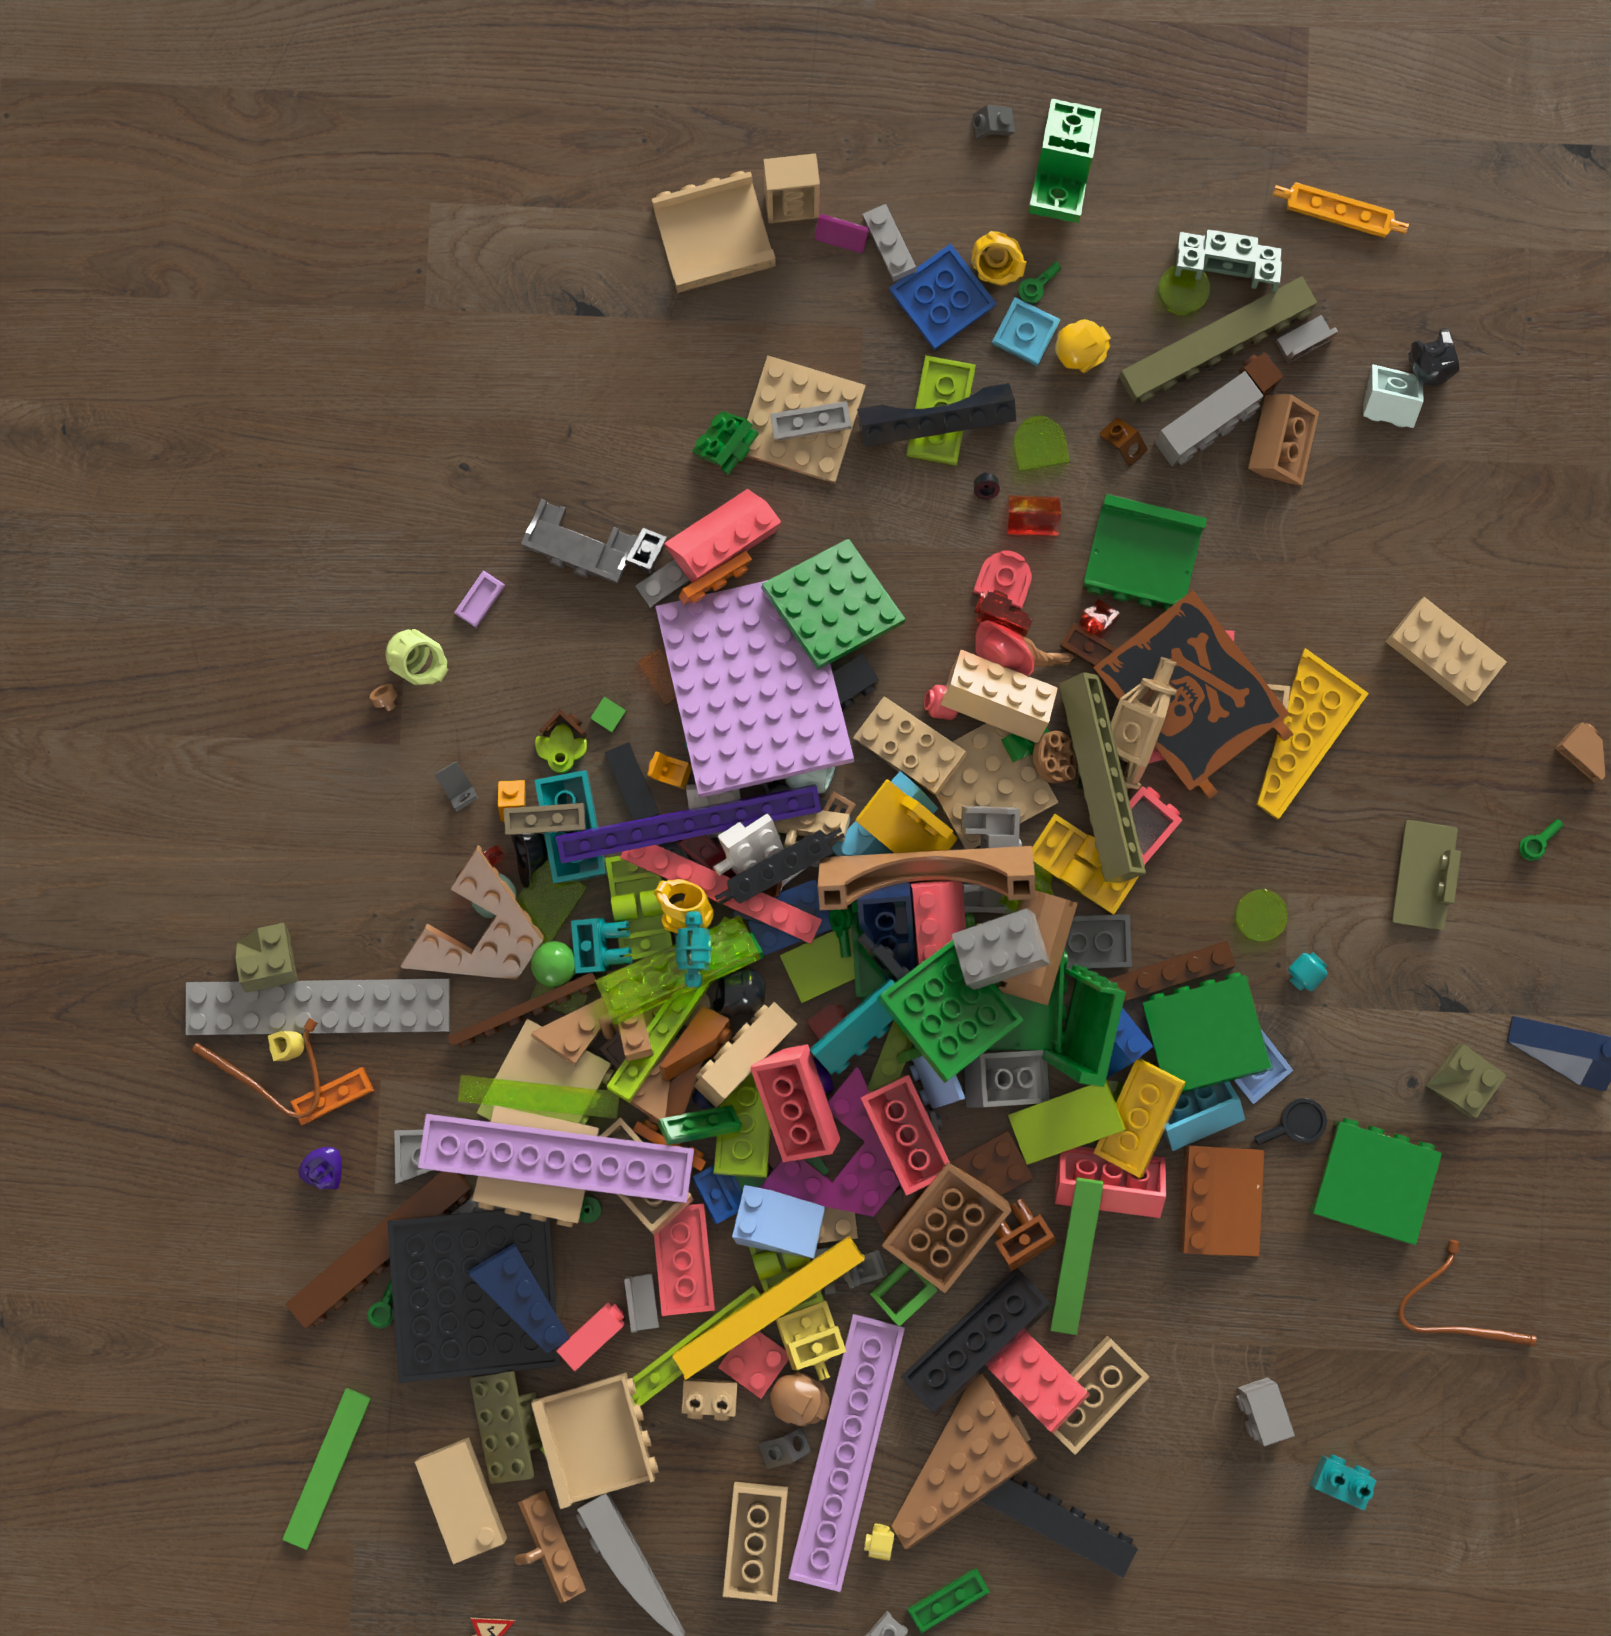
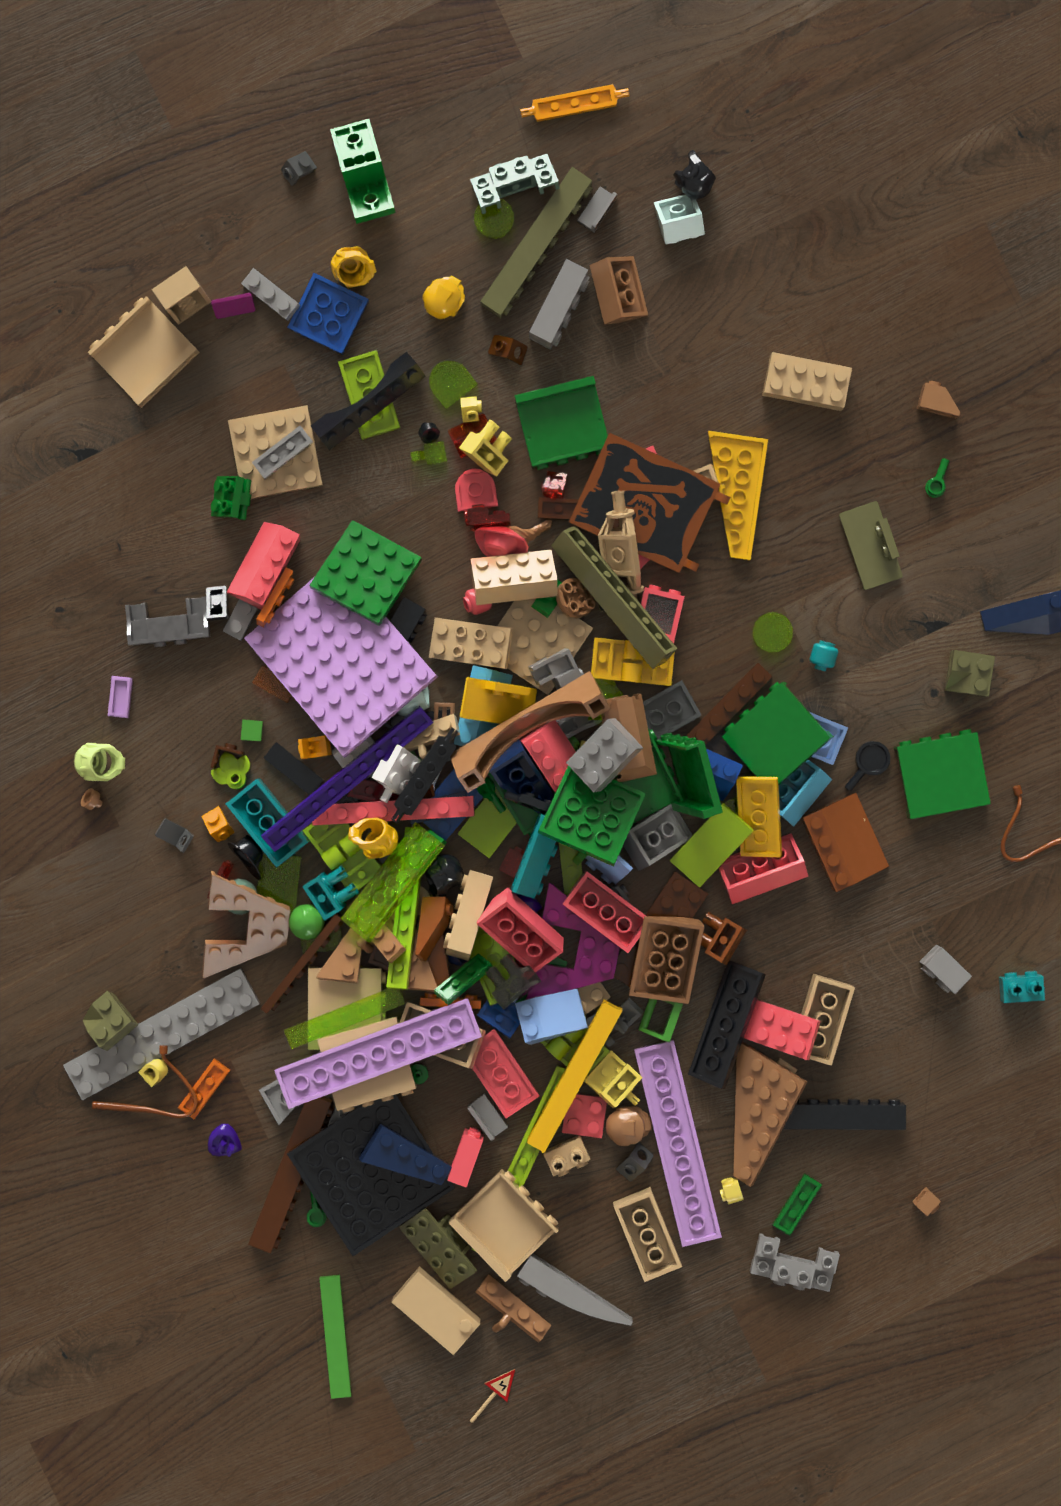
camera: 25 degrees left, 5 degrees up
(544, 819) = (247, 827): dark tan plate -> none
(693, 949) = (395, 864): teal piece -> none
(760, 1165) = (517, 986): none -> clear smoke brick
(978, 512) = (432, 452): none -> clear neon green plate
(1026, 331) = (399, 307): medium azure tile -> none
(1032, 289) = (388, 275): green plate -> none
(1037, 540) = (484, 454): none -> light yellow brick
(1047, 484) = (470, 408): none -> light yellow plate
(1076, 1256) = (764, 932): bright green tile -> none
(1262, 372) = (579, 253): reddish brown brick -> none

